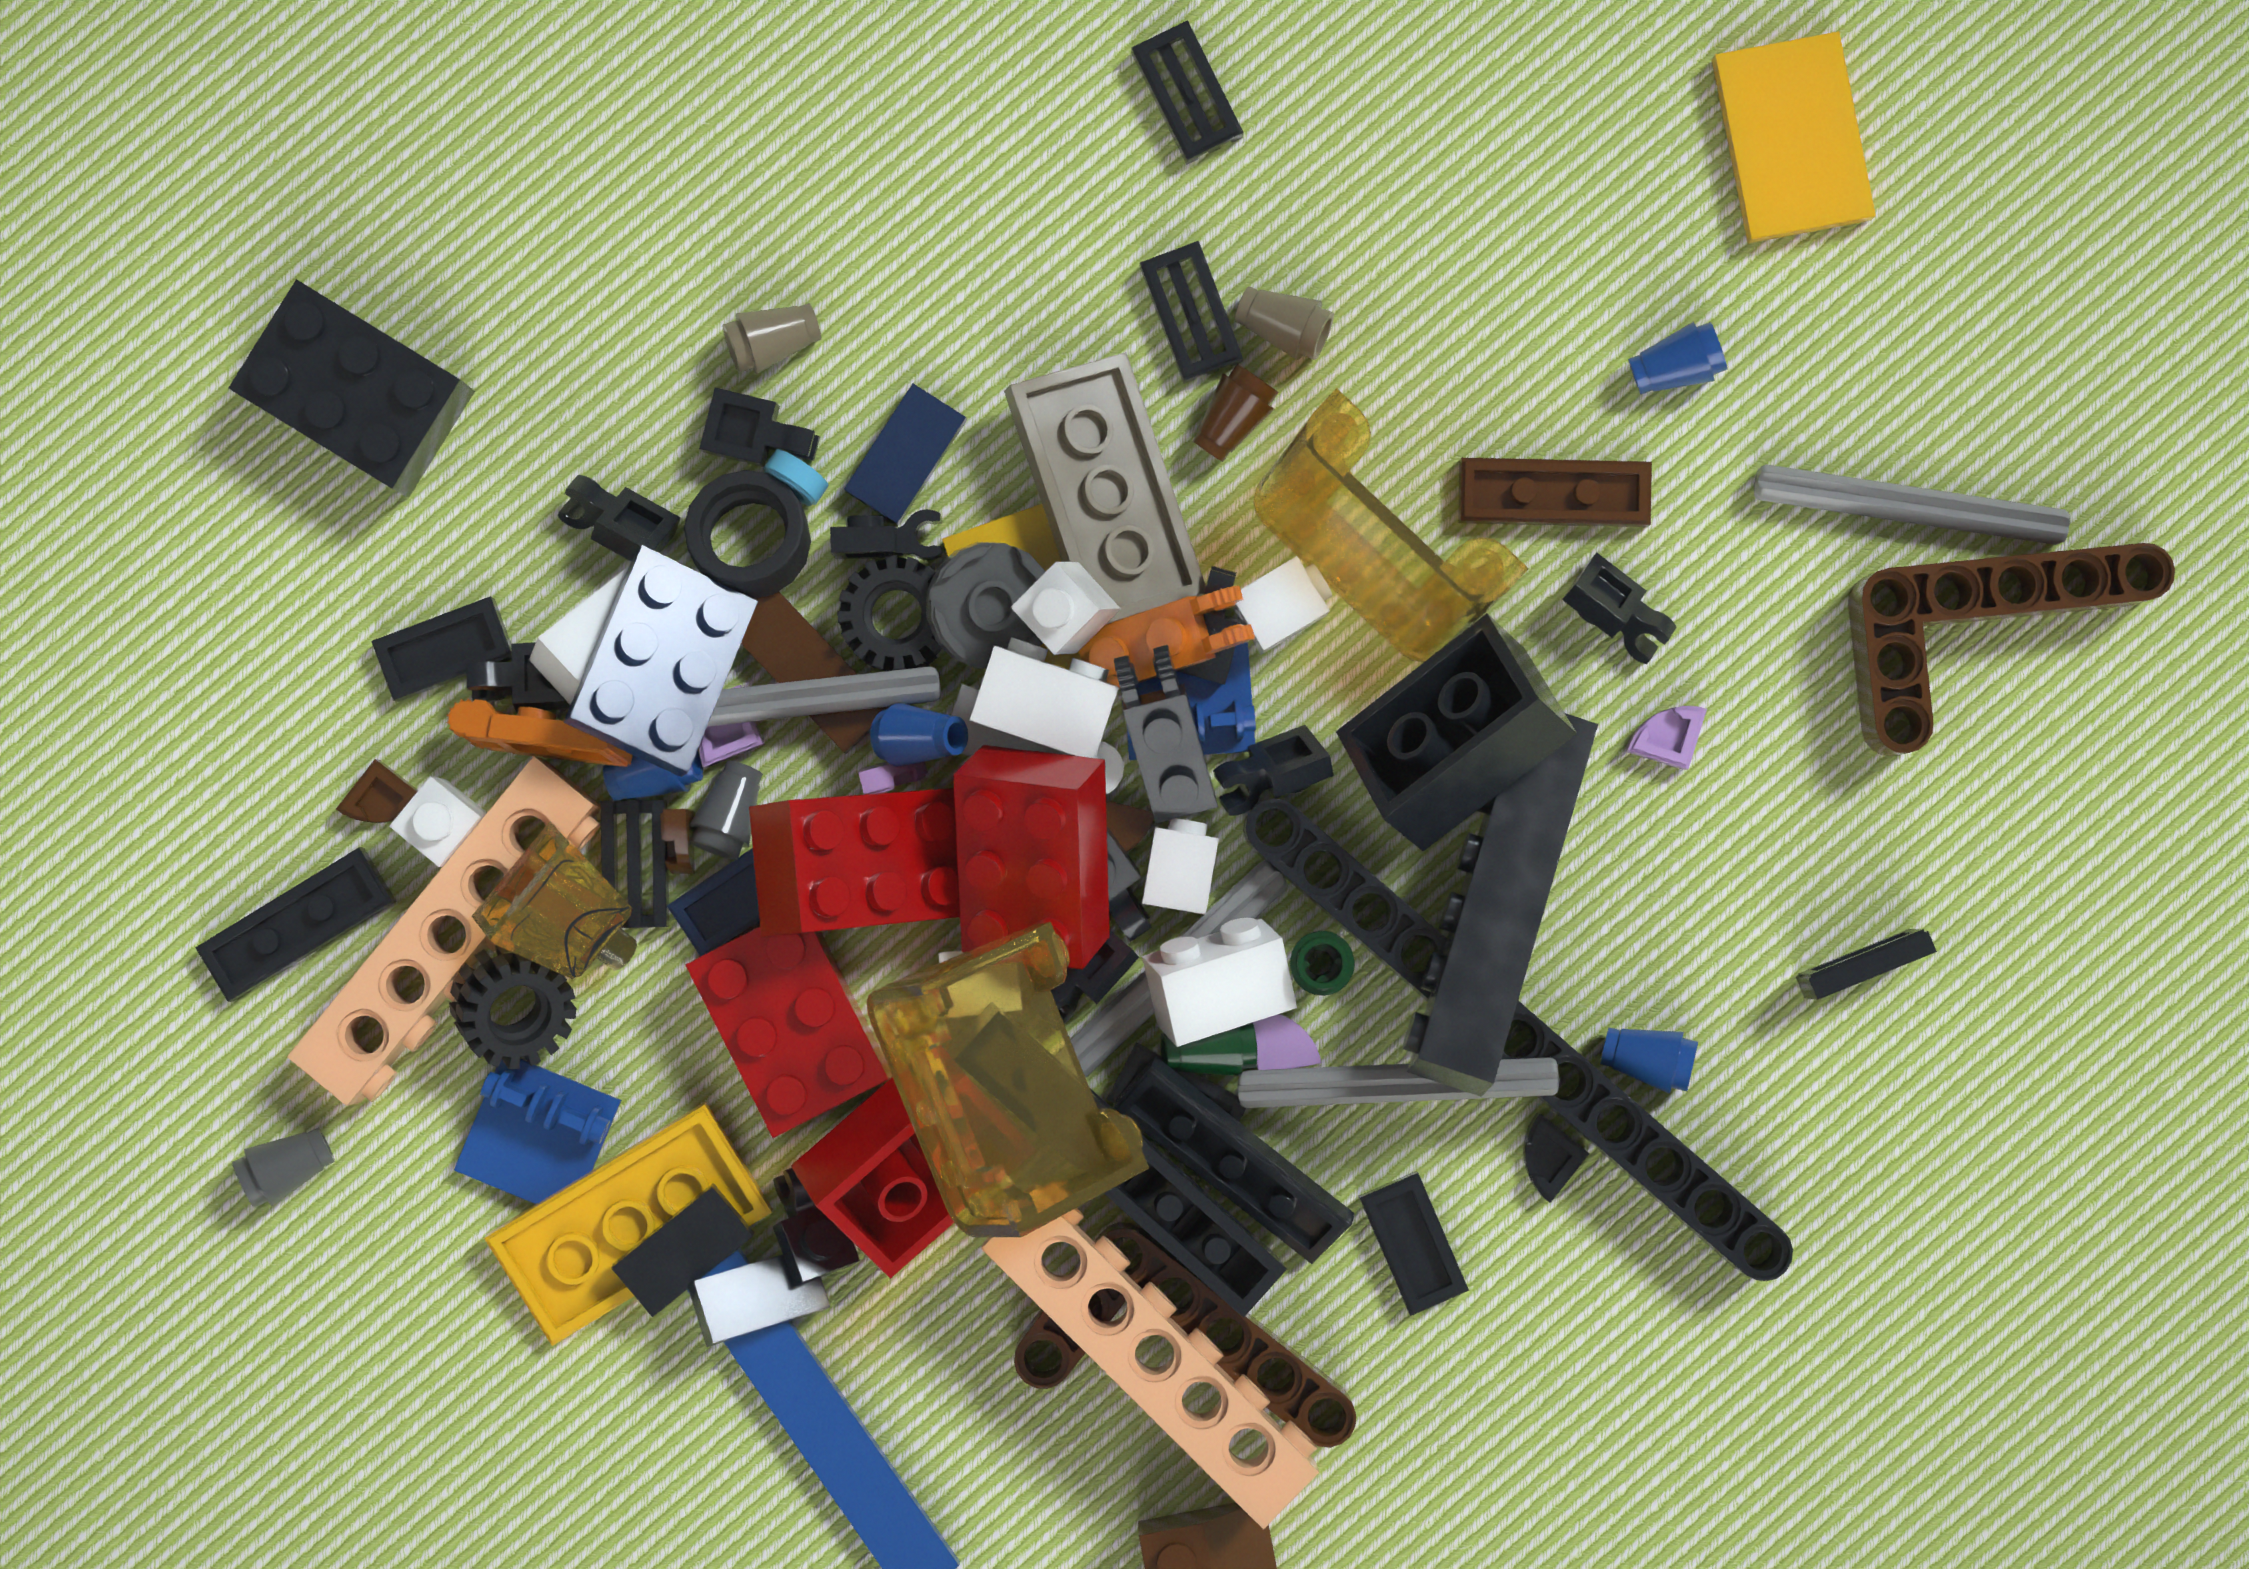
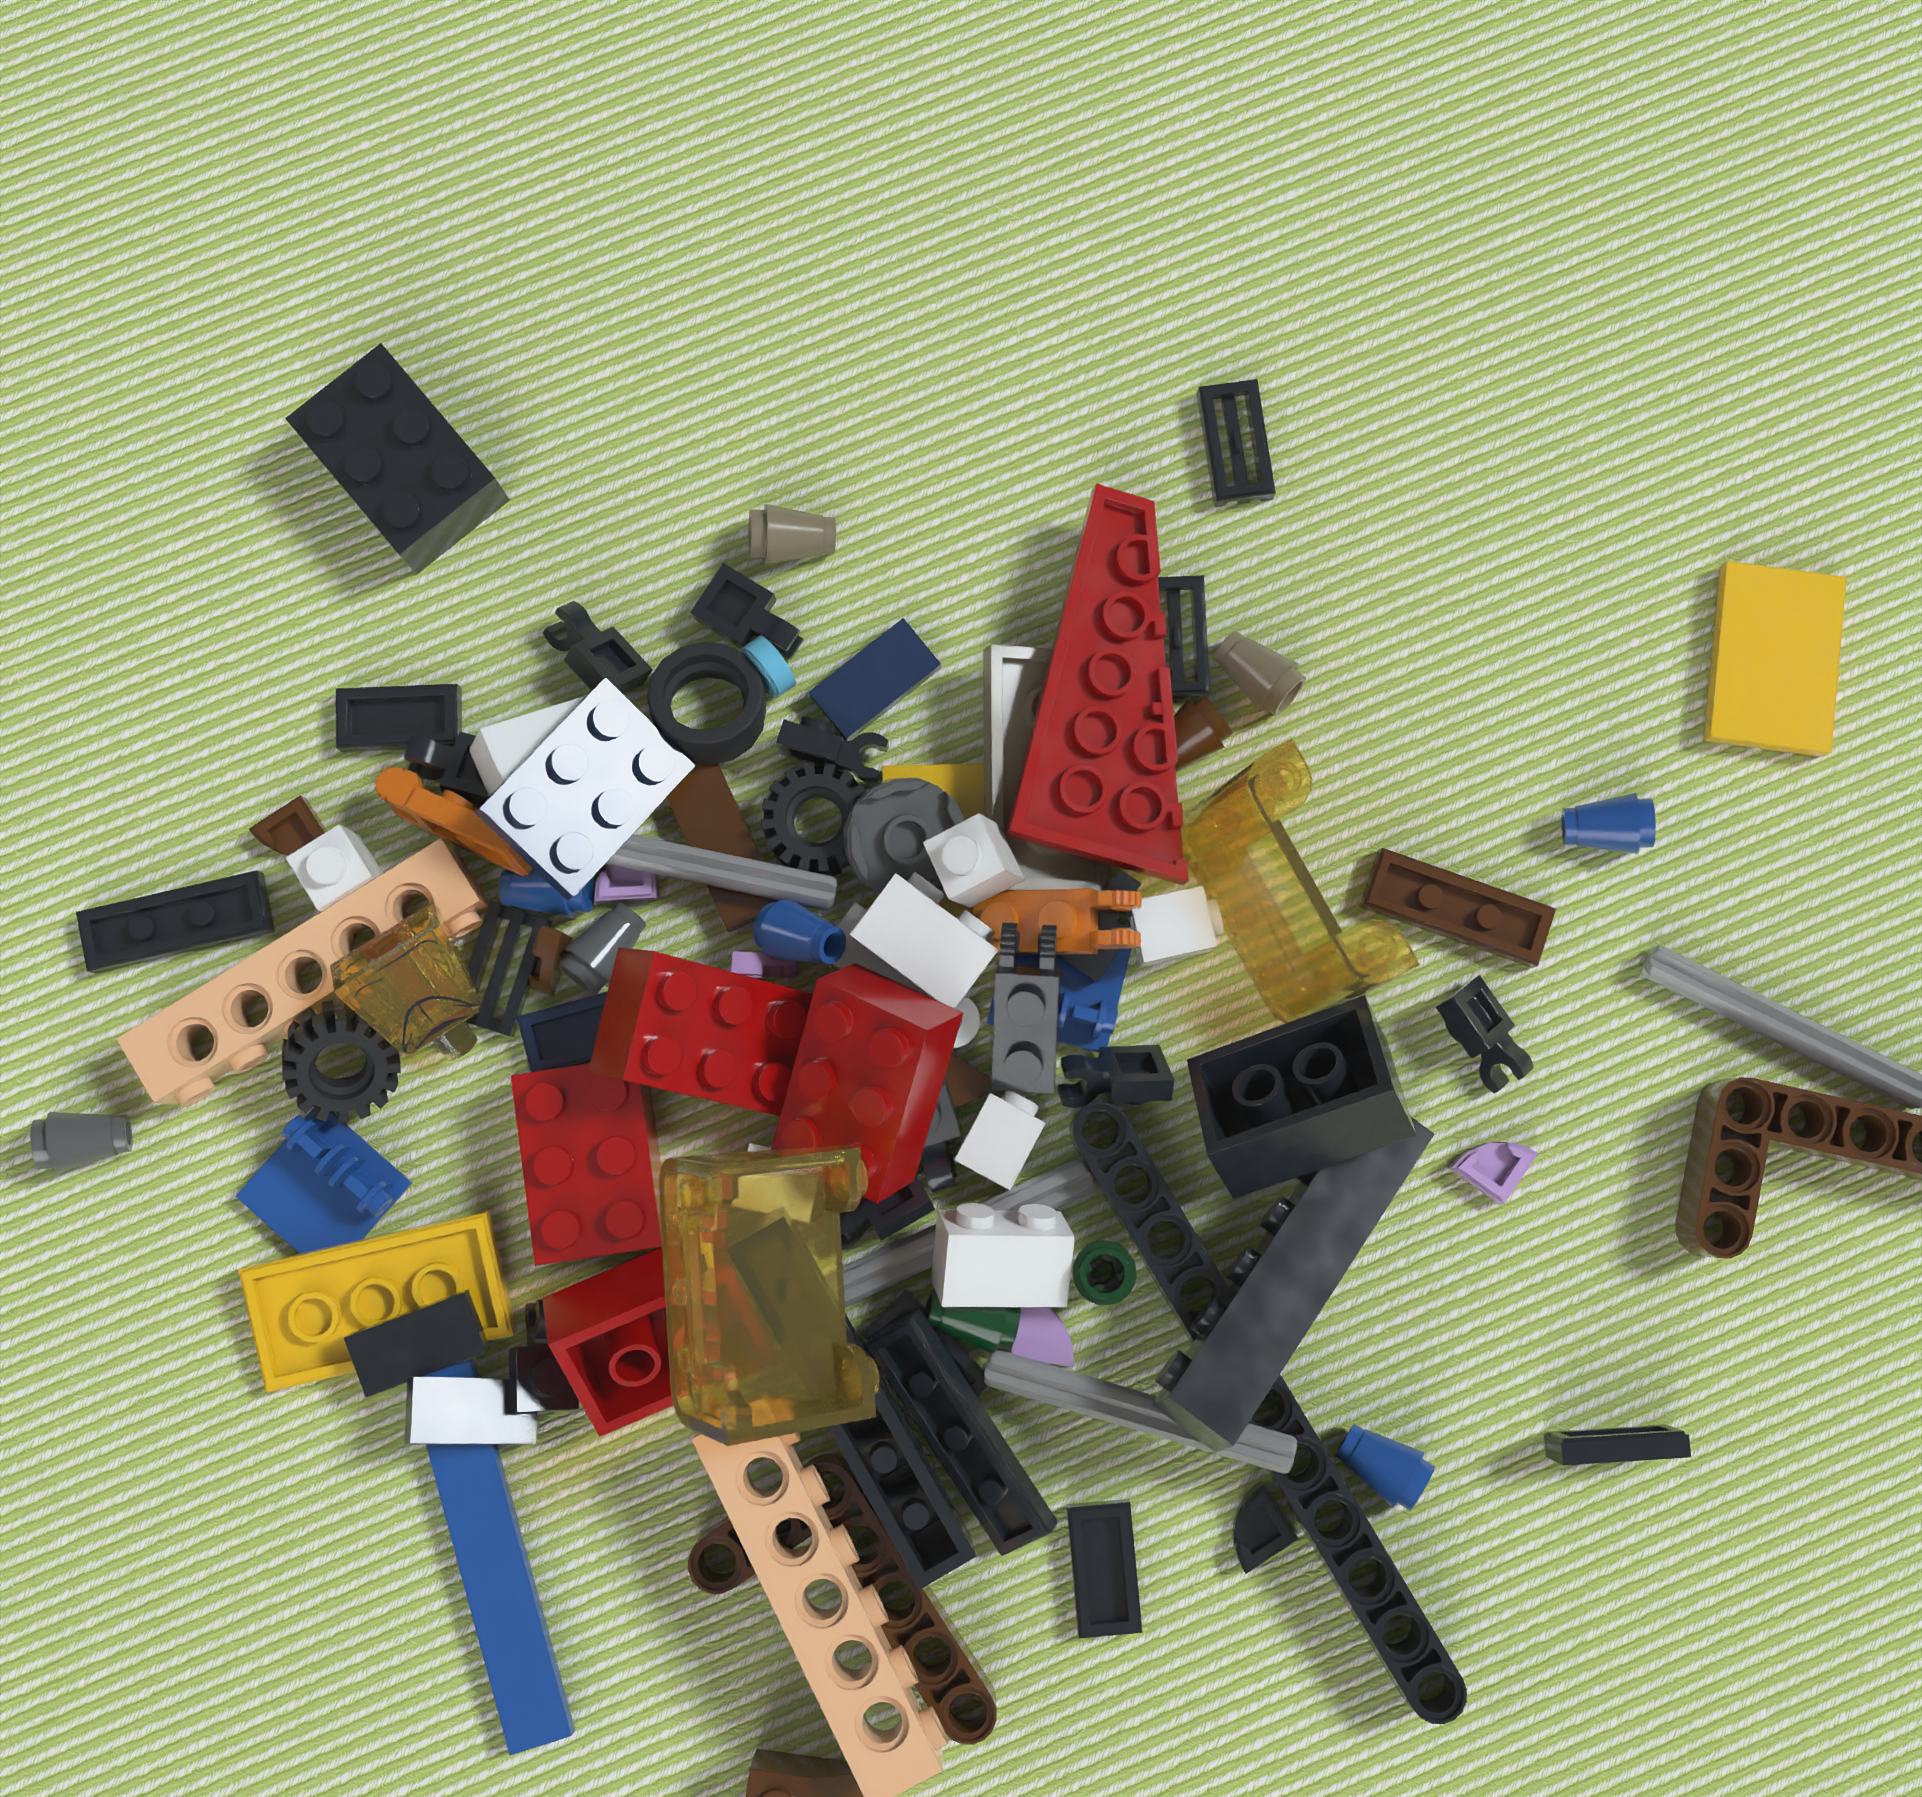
camera: 20 degrees right, 5 degrees down
(1147, 425) = (1104, 724): none -> red wing

